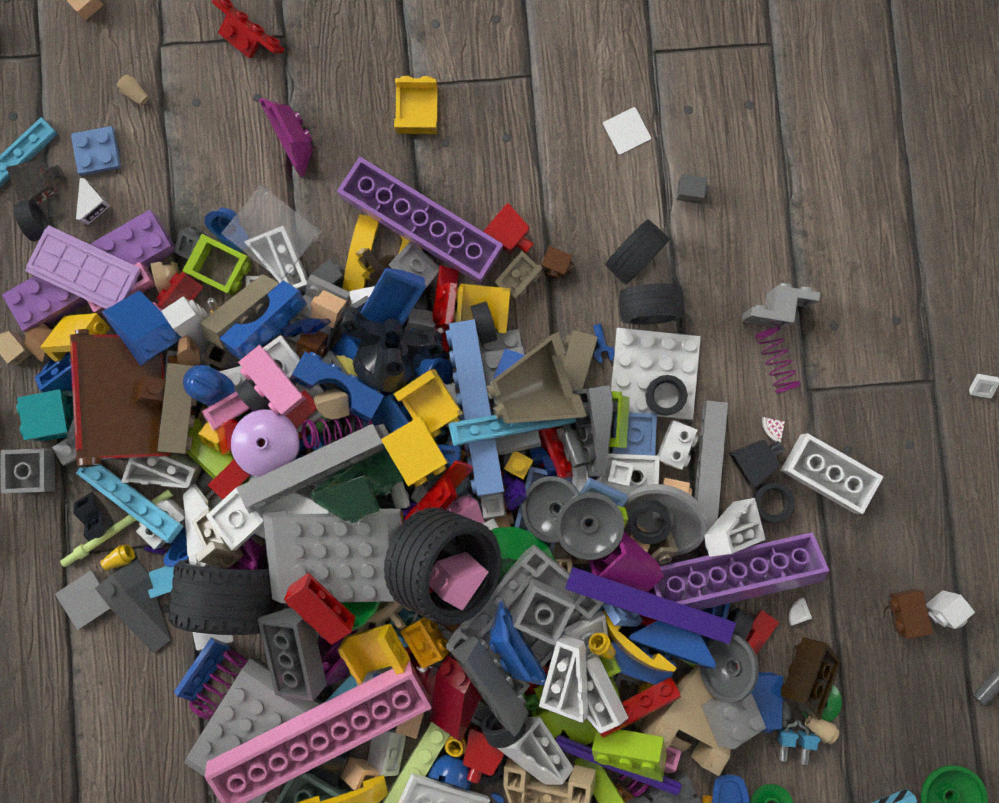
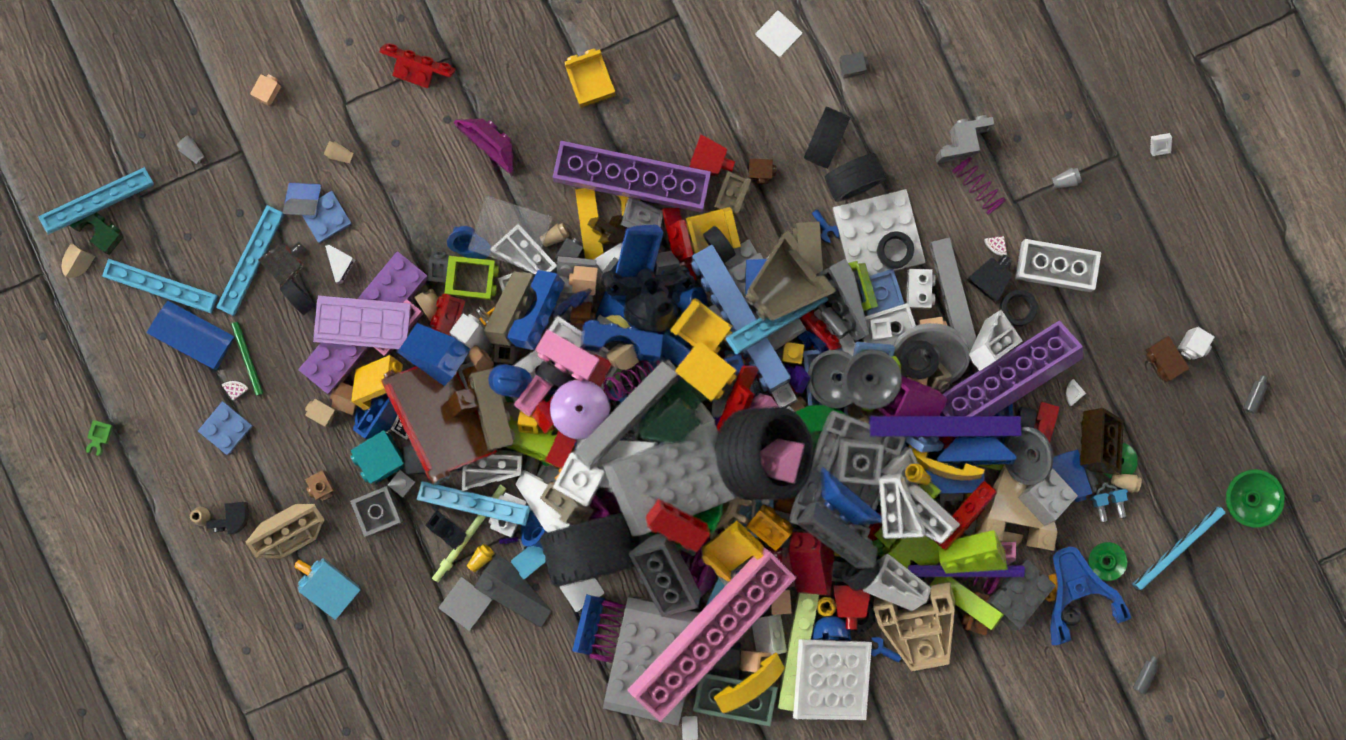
camera: 25 degrees left, 0 degrees up
(78, 123) = (301, 199): none -> sticker
(321, 253) = (556, 234): none -> tan cone
(873, 386) = (1067, 179): none -> light grey cone

